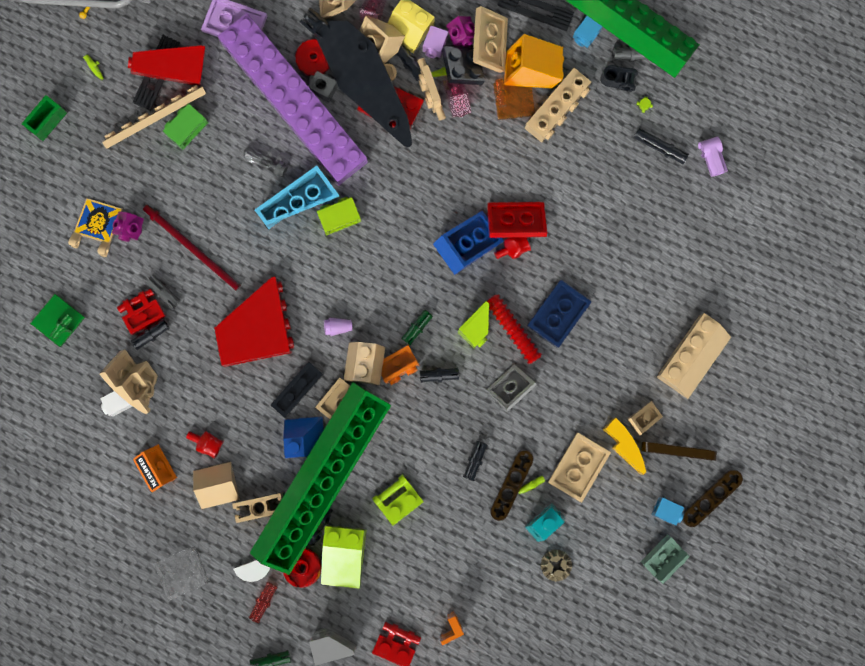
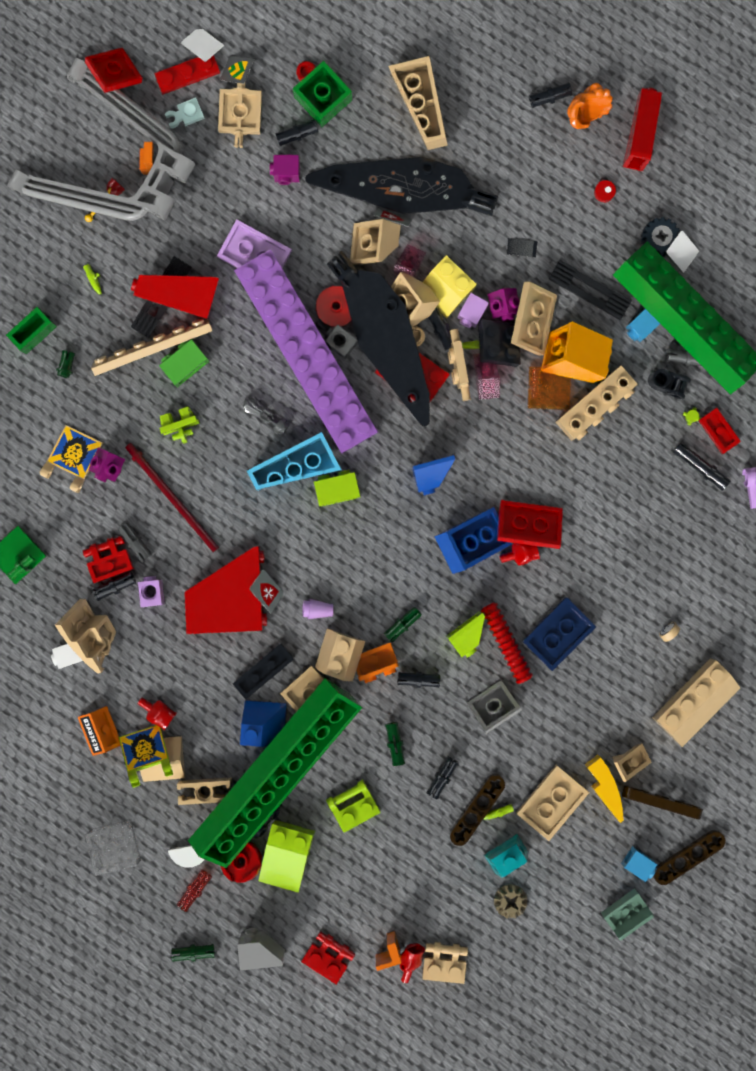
camera: 10 degrees right, 5 degrees up
(79, 144) = (65, 365): none -> dark green pin
(190, 340) = (146, 600): none -> lavender brick
(191, 182) = (169, 426): none -> lime hips
(198, 478) = (144, 750): none -> flag
(289, 316) = (266, 591): none -> light grey sticker
(421, 187) = (431, 474): none -> blue slope
(430, 449) = (397, 758): none -> dark green pin
(473, 635) = (411, 960): none -> red piece
(505, 638) = (445, 969): none -> tan plate
(658, 296) = (669, 632): none -> tan tile
(671, 112) = (719, 431): none -> red plate

